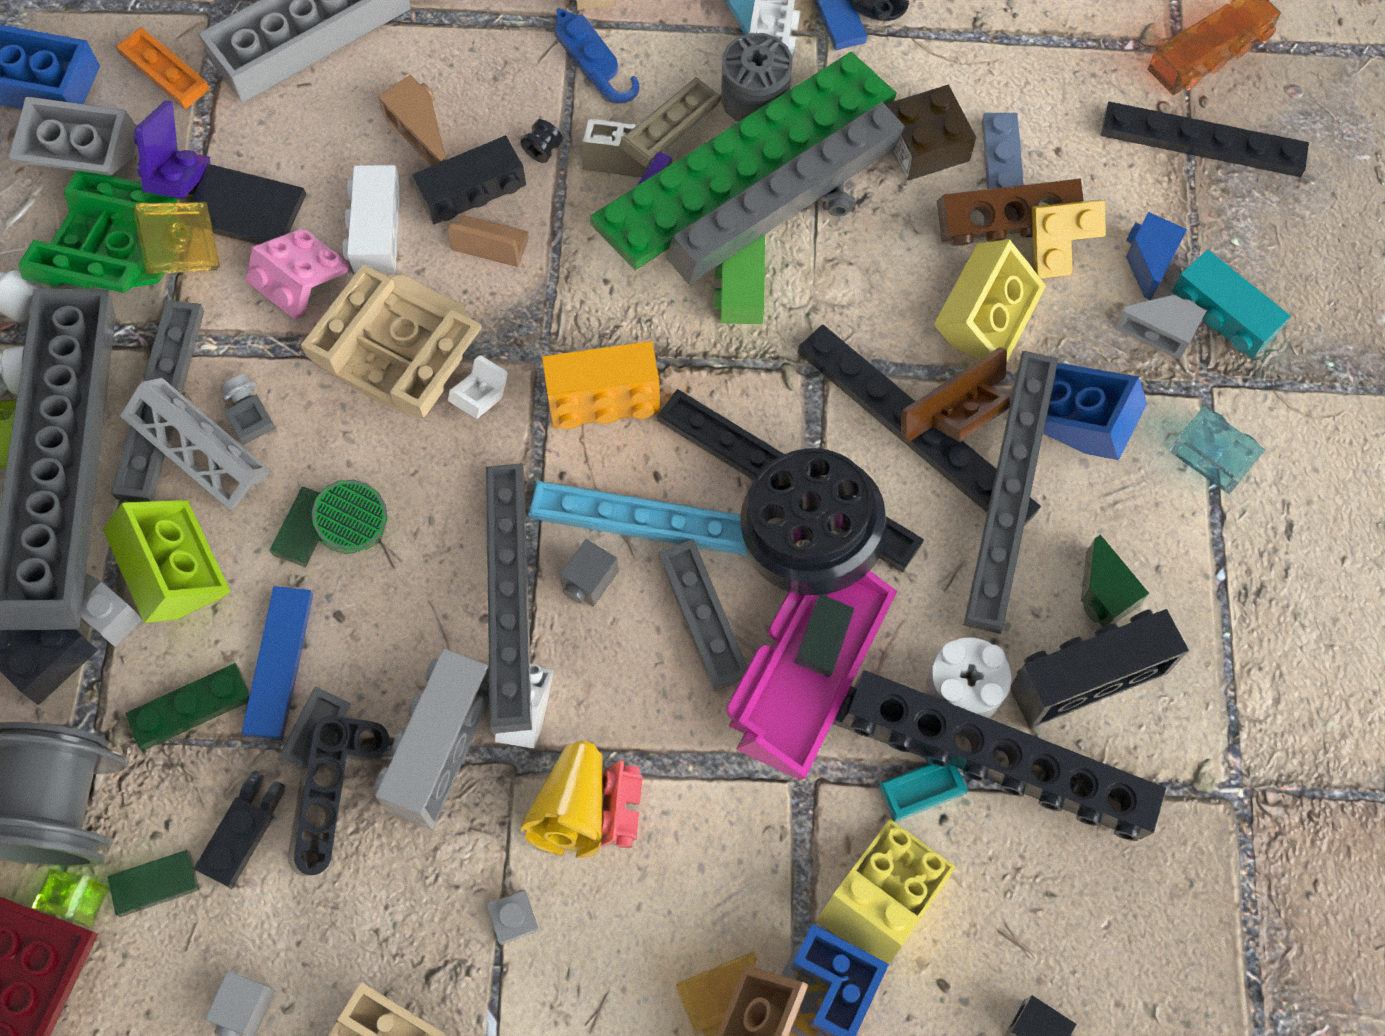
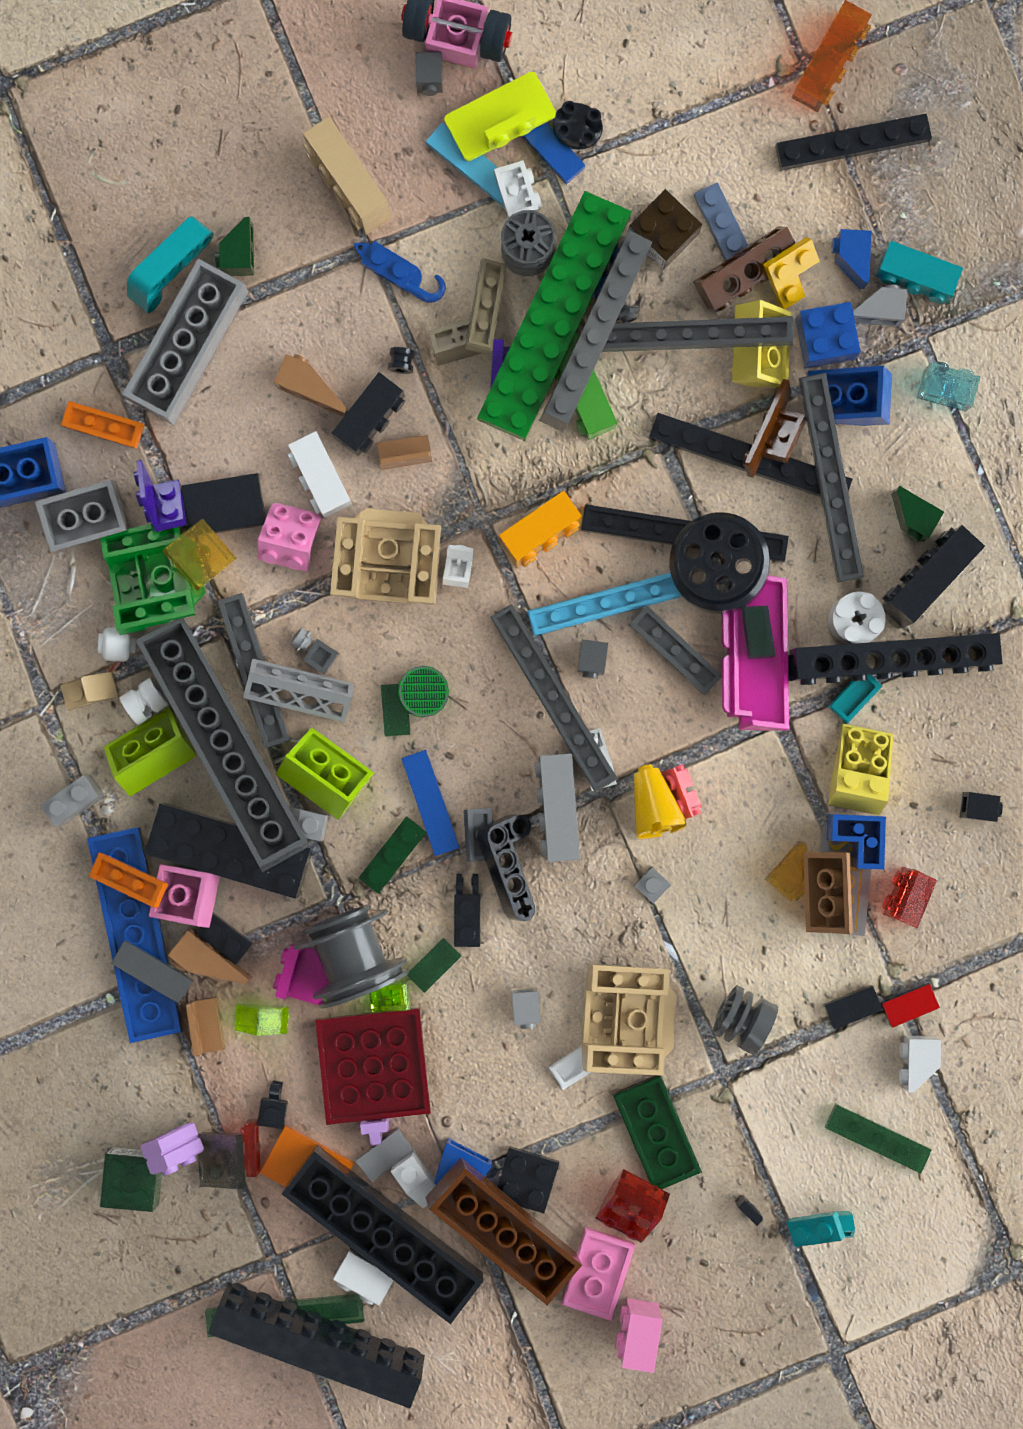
camera: 25 degrees left, 20 degrees up
(916, 247) = (701, 334): none -> dark grey plate
(1081, 323) = (827, 335): none -> blue brick

